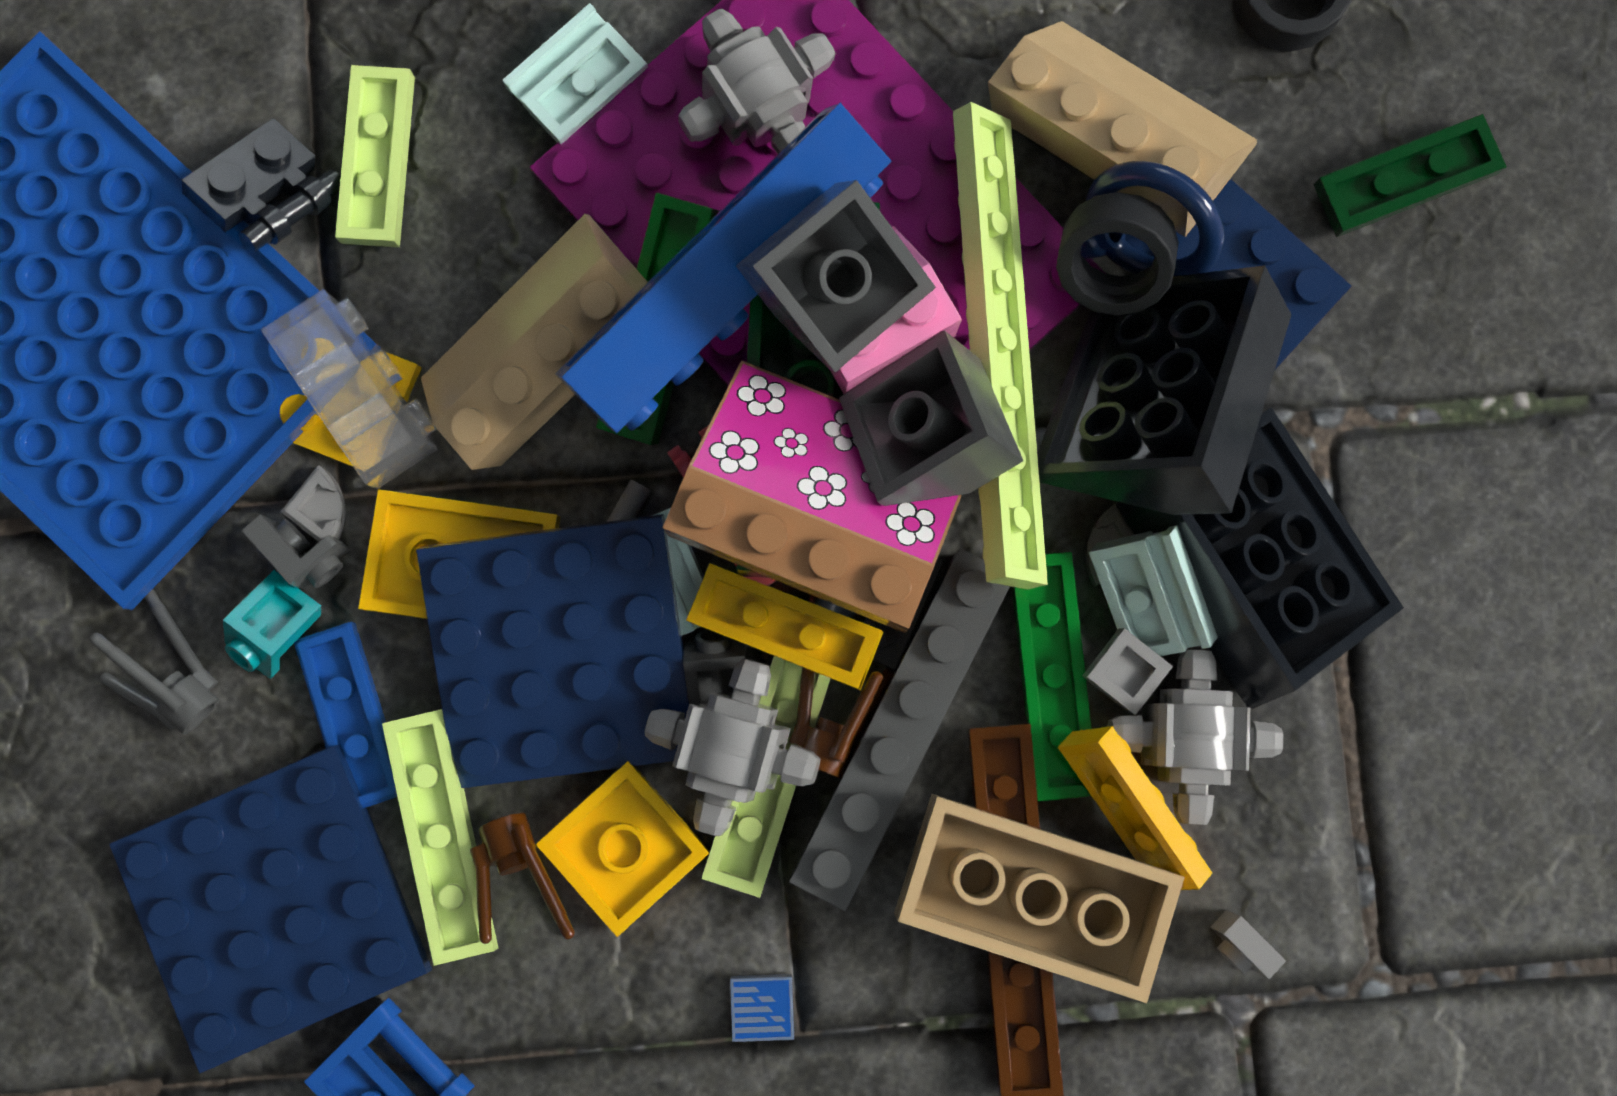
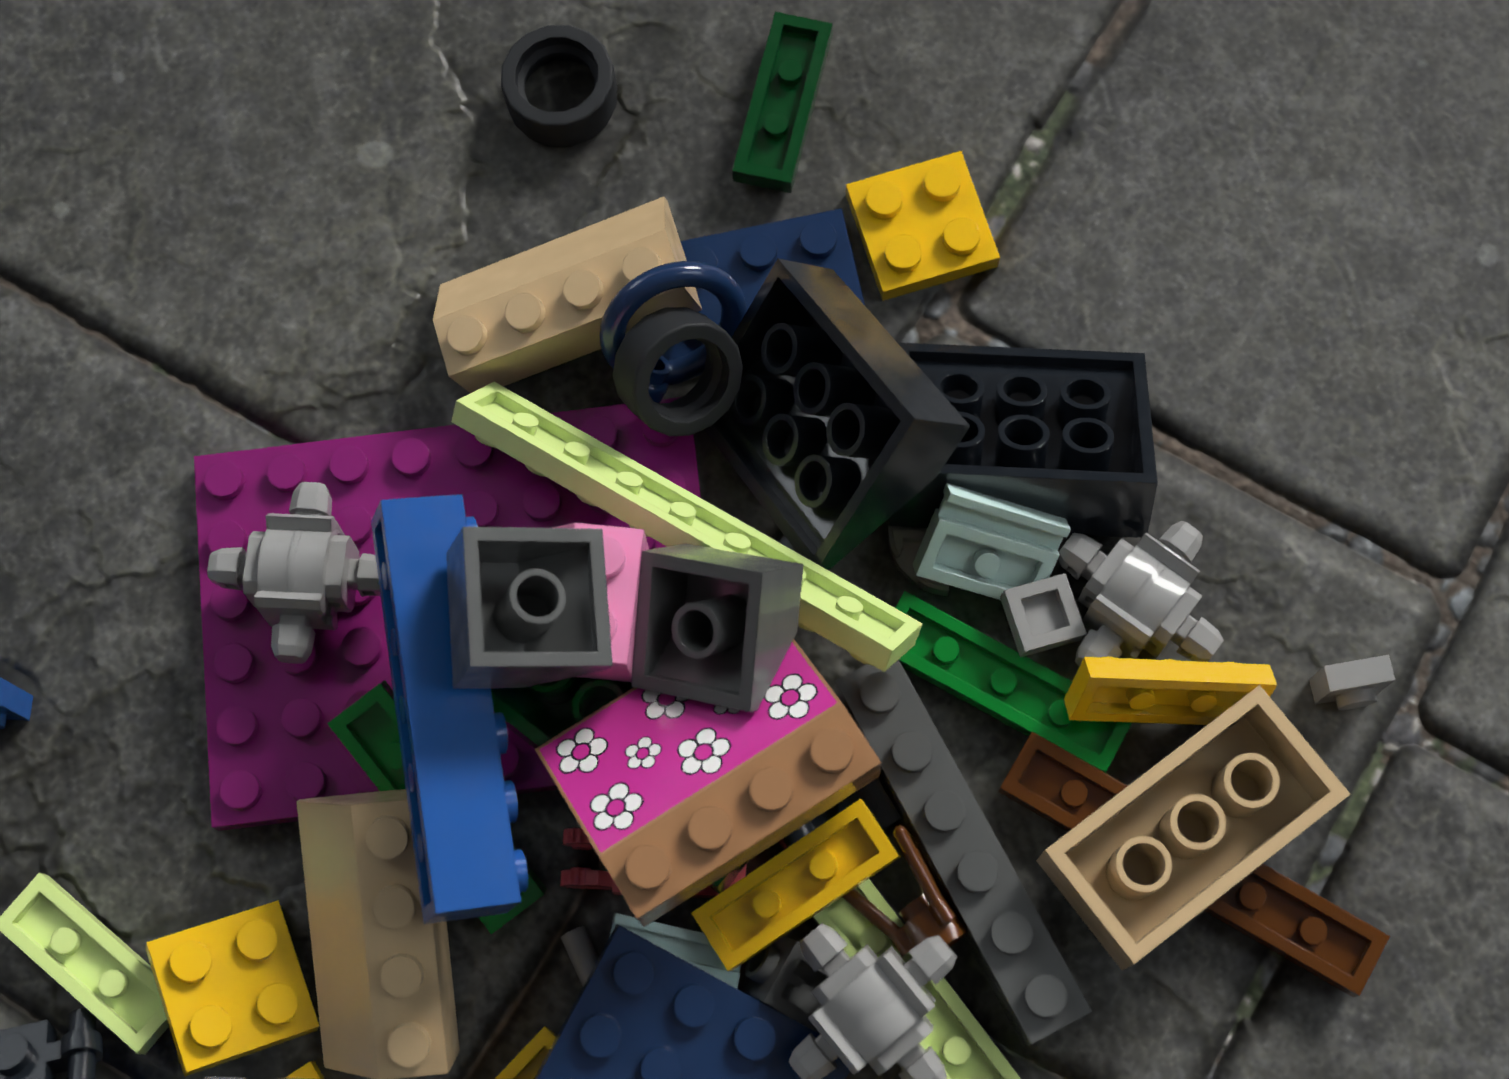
camera: 50 degrees left, 10 degrees down
(427, 268) = (231, 987): none -> yellow plate
(574, 74) = (161, 727): light aqua plate -> none
(1385, 359) = (922, 225): none -> yellow plate

